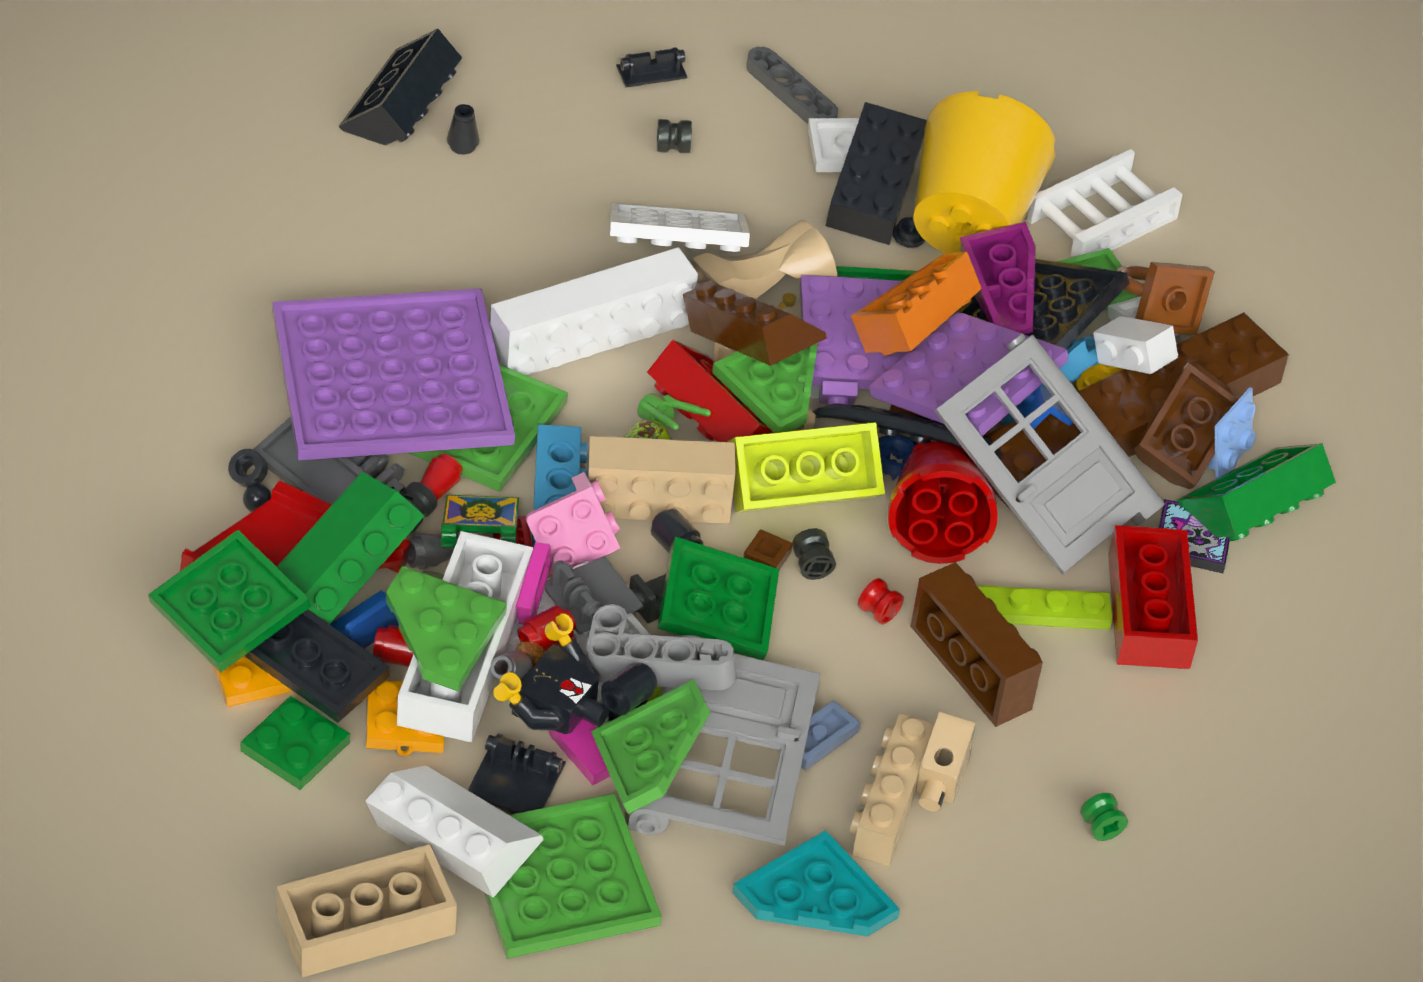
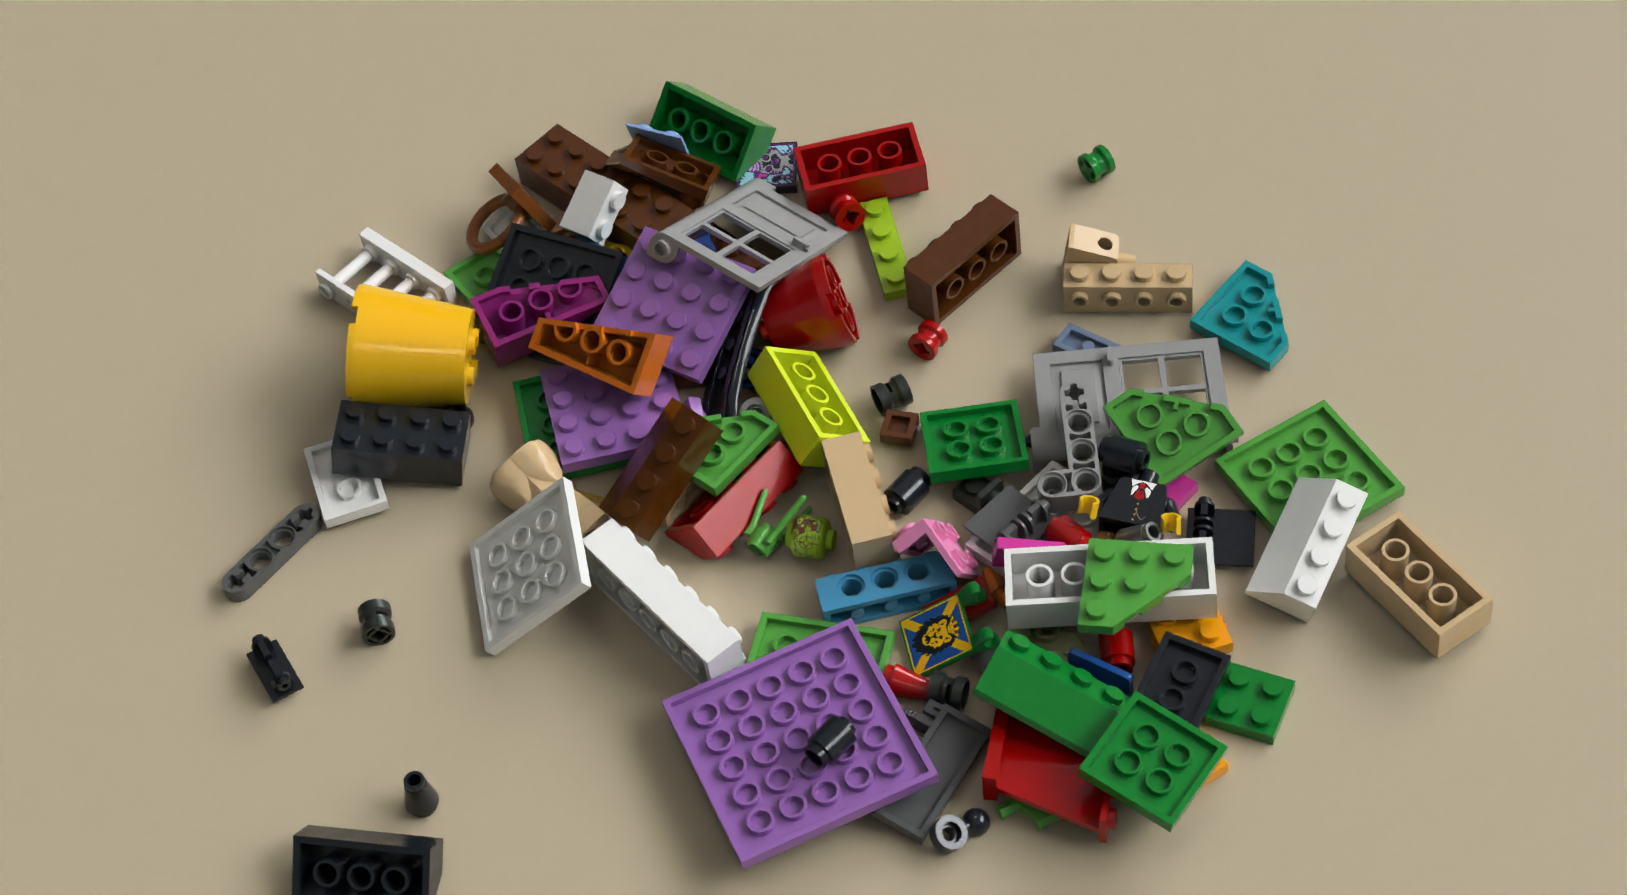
camera: 90 degrees left, 5 degrees up
(363, 373) = (830, 741): none -> black brick
(1092, 574) = (839, 208): none -> red wheel

